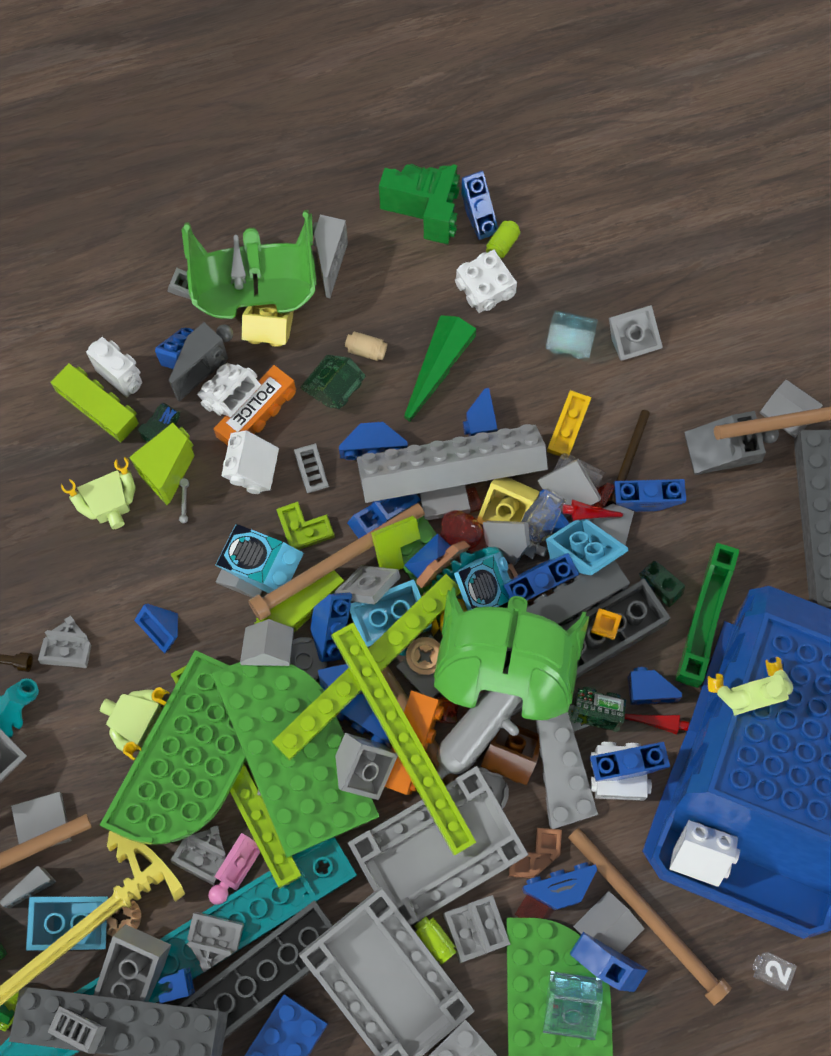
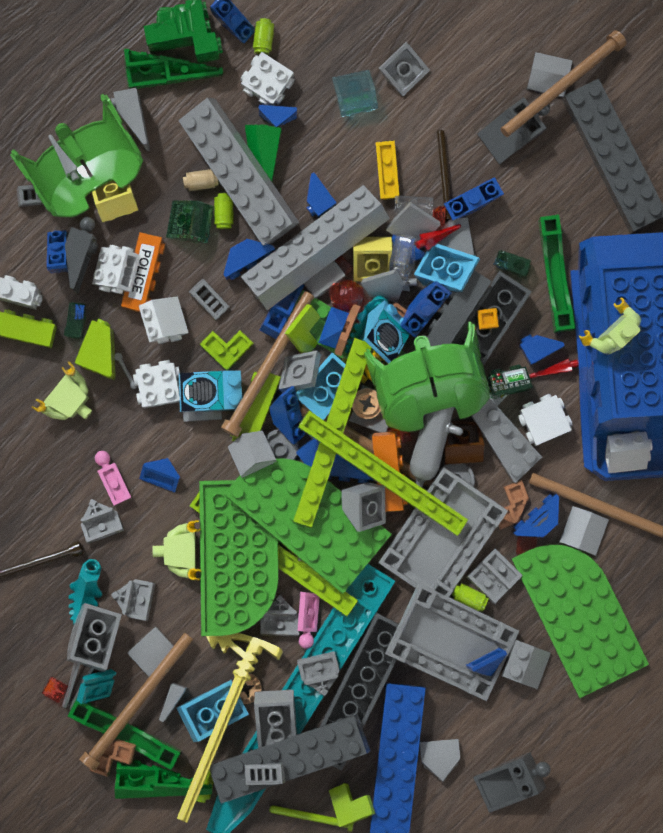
camera: 25 degrees left, 15 degrees up
(56, 750) = (135, 599): none -> light grey slope
(104, 605) = (112, 479): none -> bright pink plate
(181, 984) = (314, 712): blue hinge -> none
(206, 528) = (157, 384): none -> white brick
(373, 223) = (150, 70): none -> green wedge
(373, 387) = (223, 211): none -> lime head
(409, 353) = (238, 171): none -> light grey brick
(417, 1032) = (488, 663): none -> blue slope
(480, 317) = (277, 114): none -> blue slope
(573, 1005) = (583, 595): clear light blue slope -> none
(608, 963) = (594, 556): blue slope -> none
(630, 762) = (549, 413): blue slope -> none

